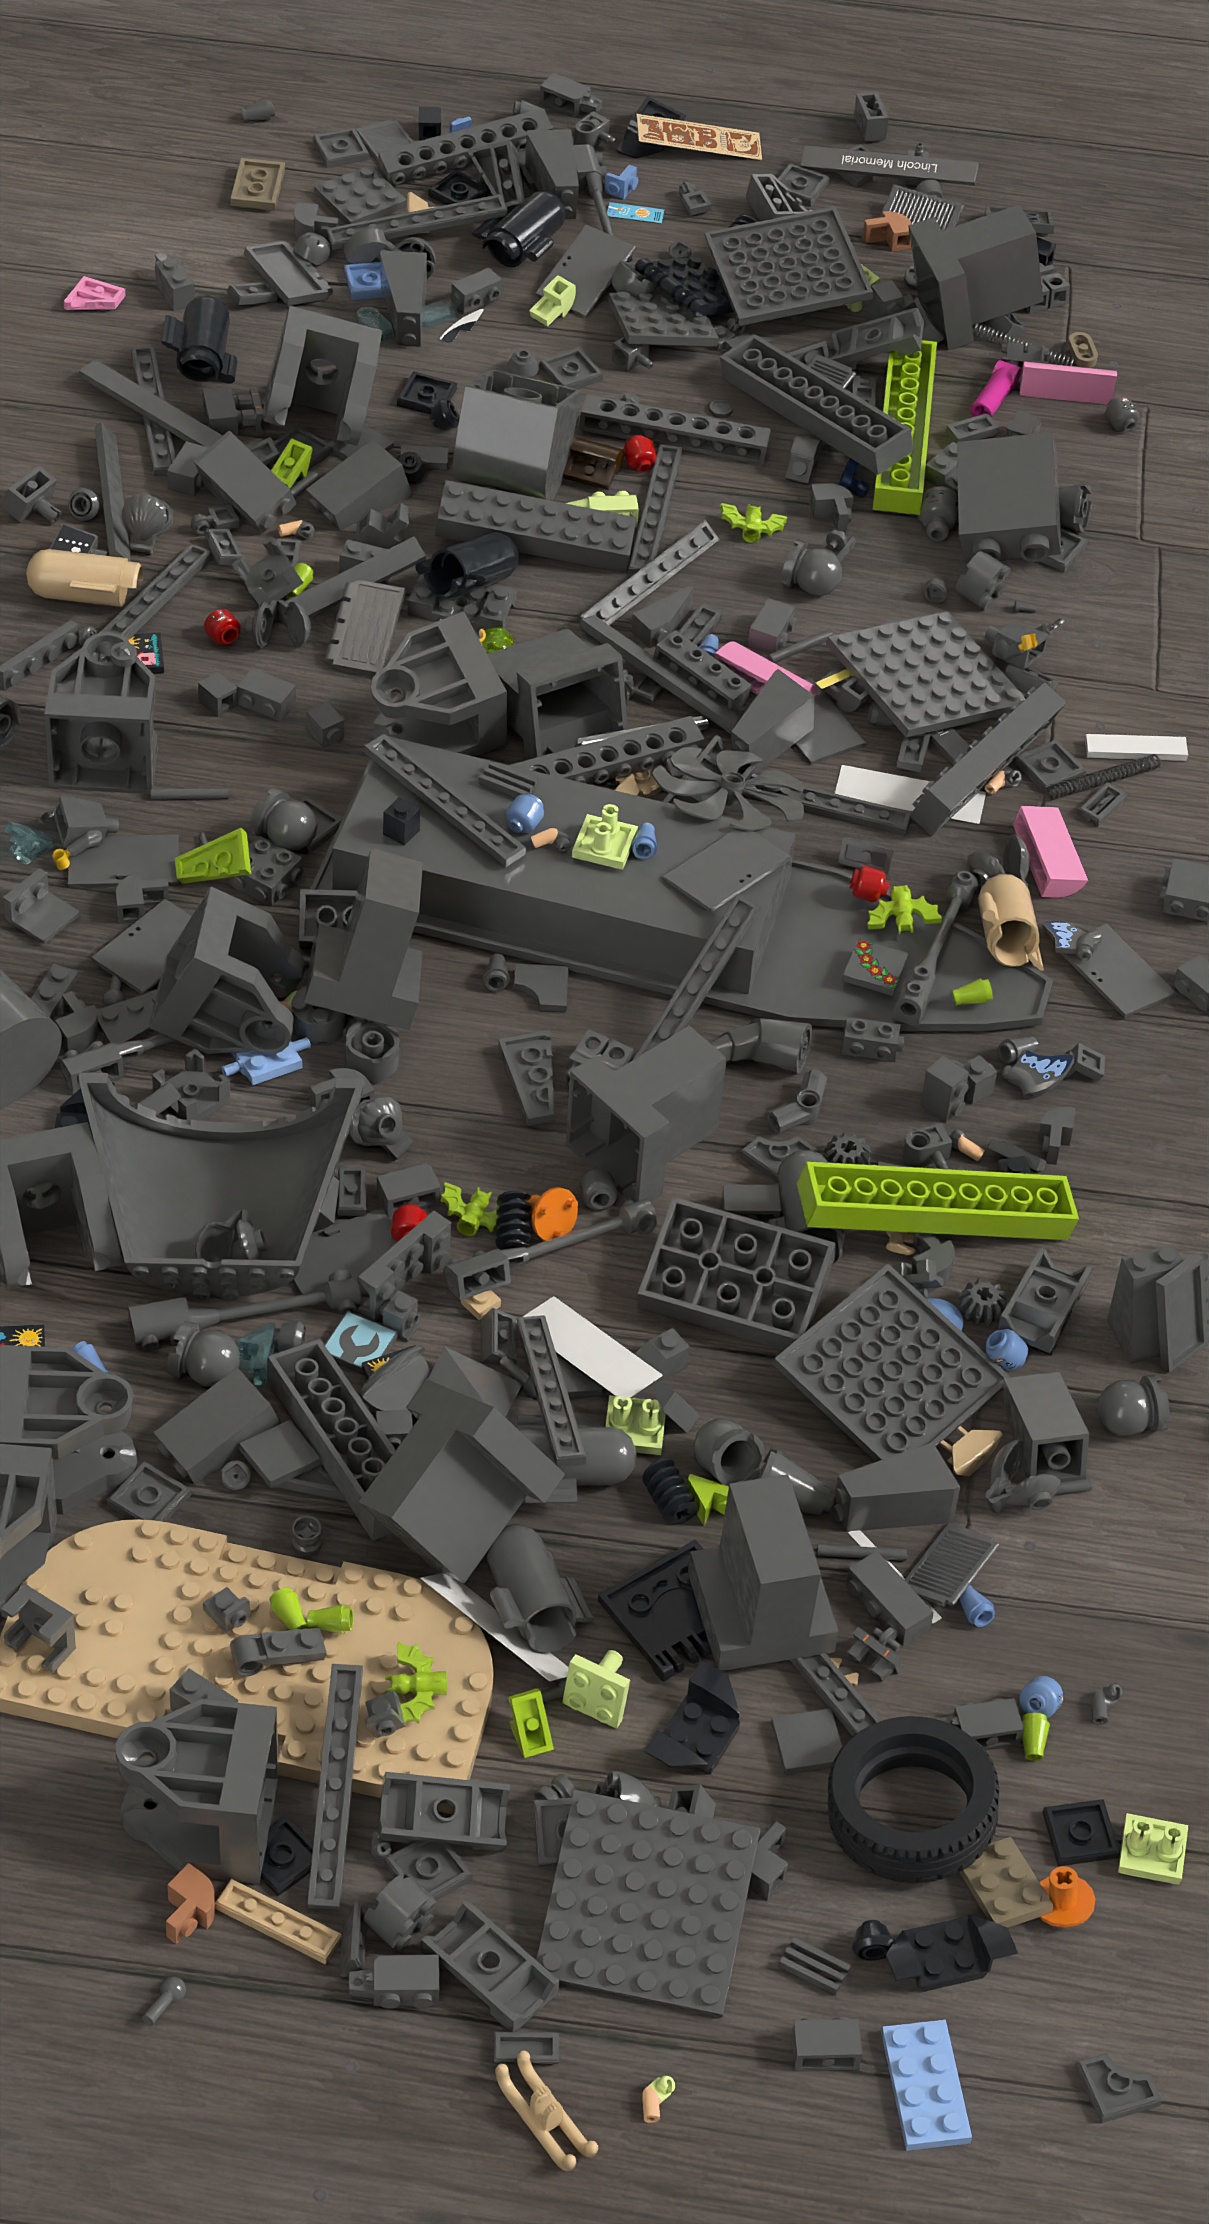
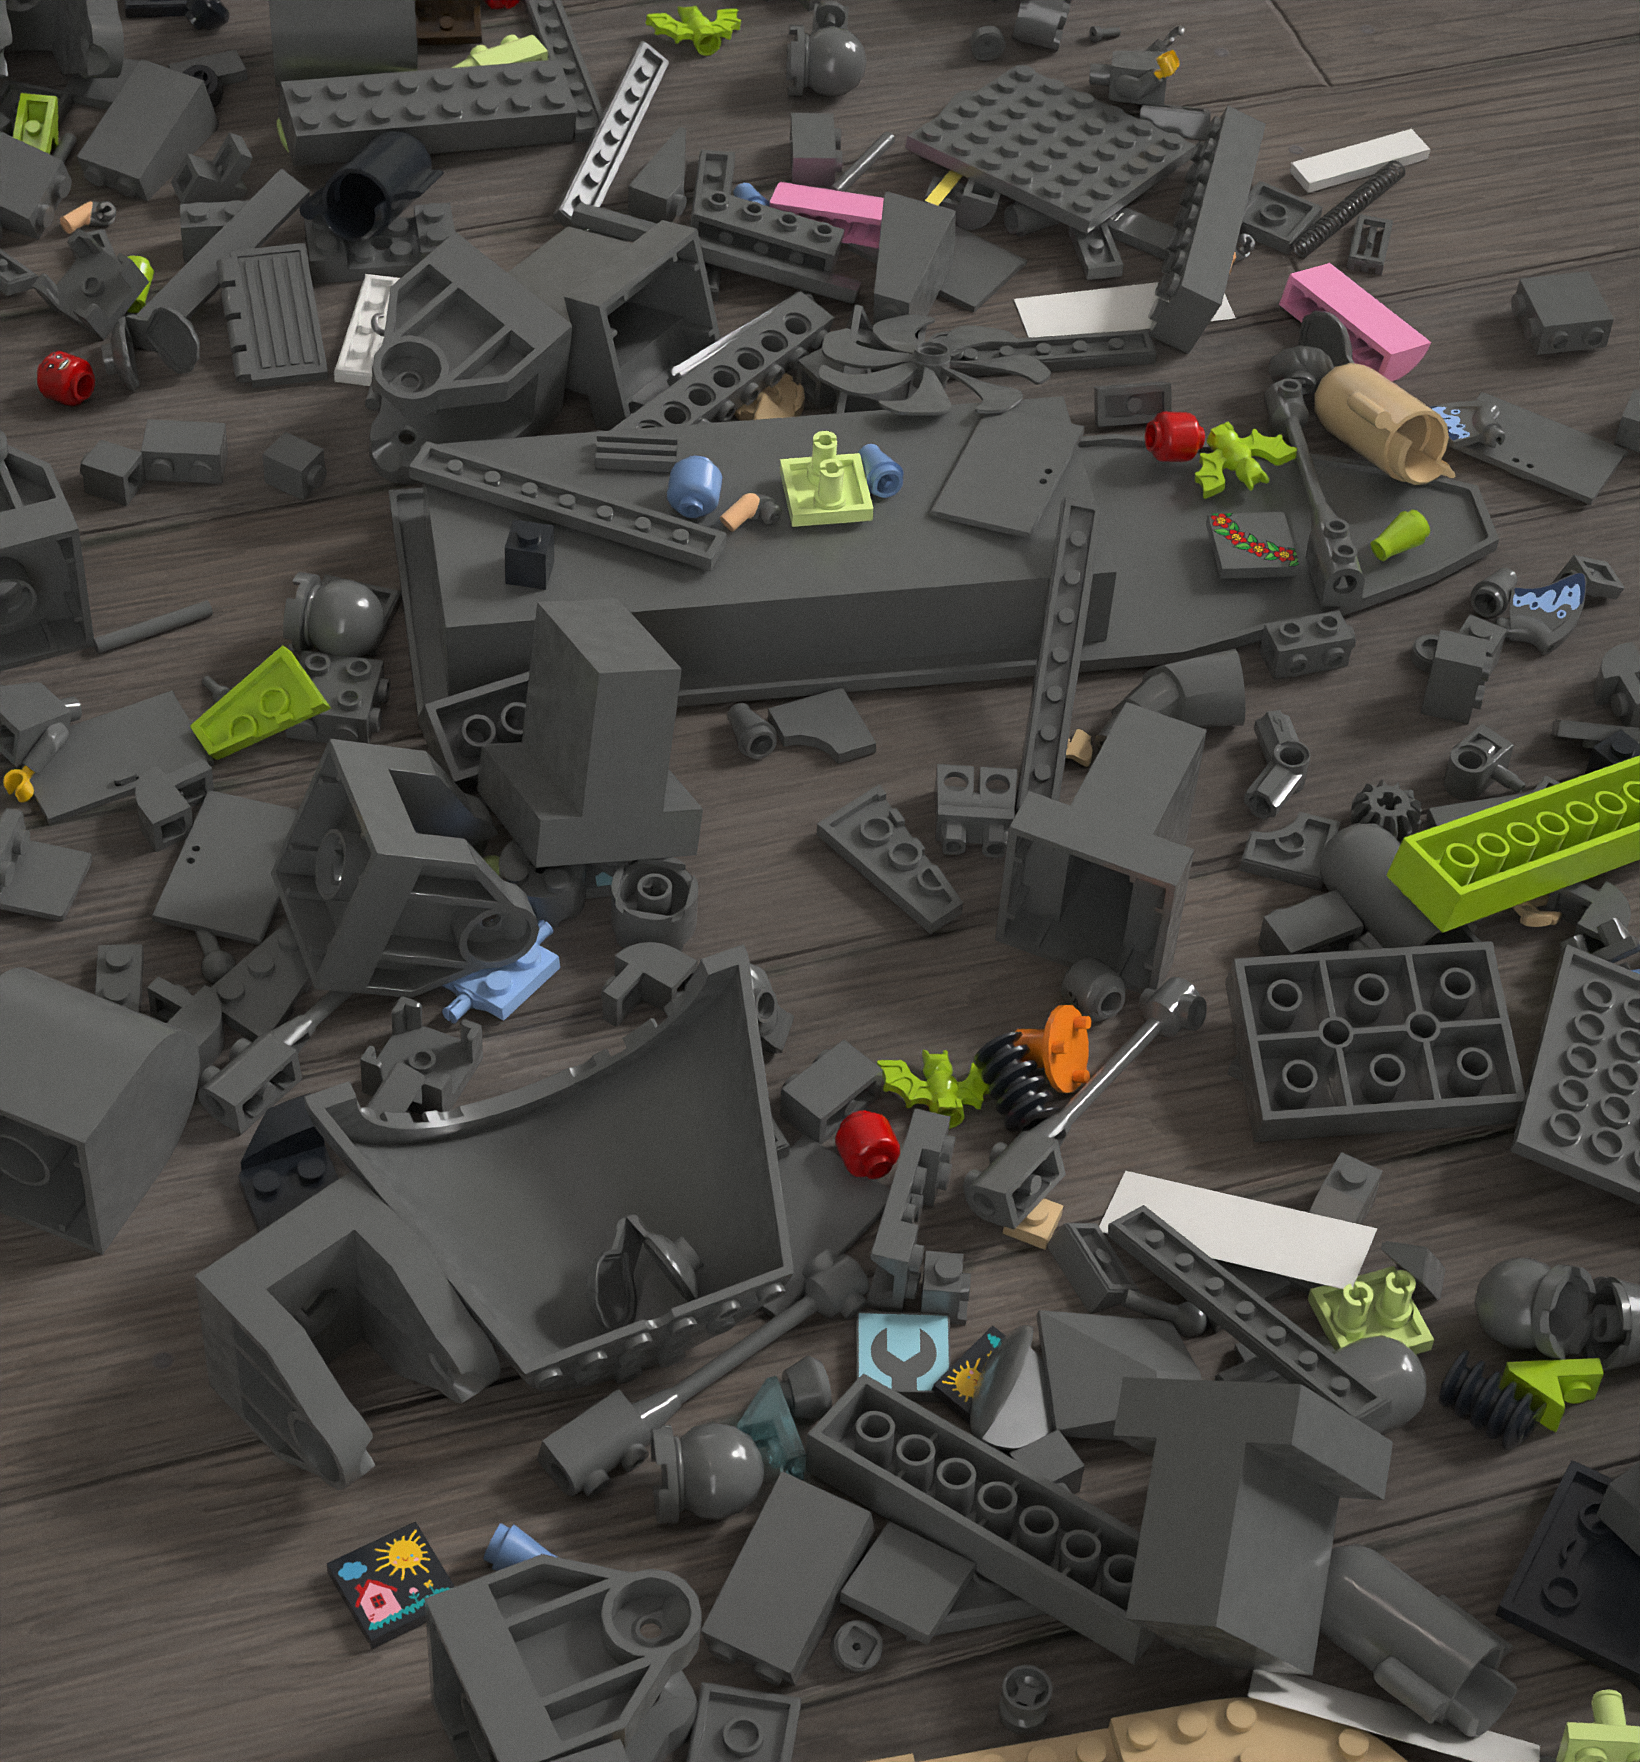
camera: 25 degrees left, 0 degrees up
(965, 1146) = (1525, 745): light nougat arm -> none

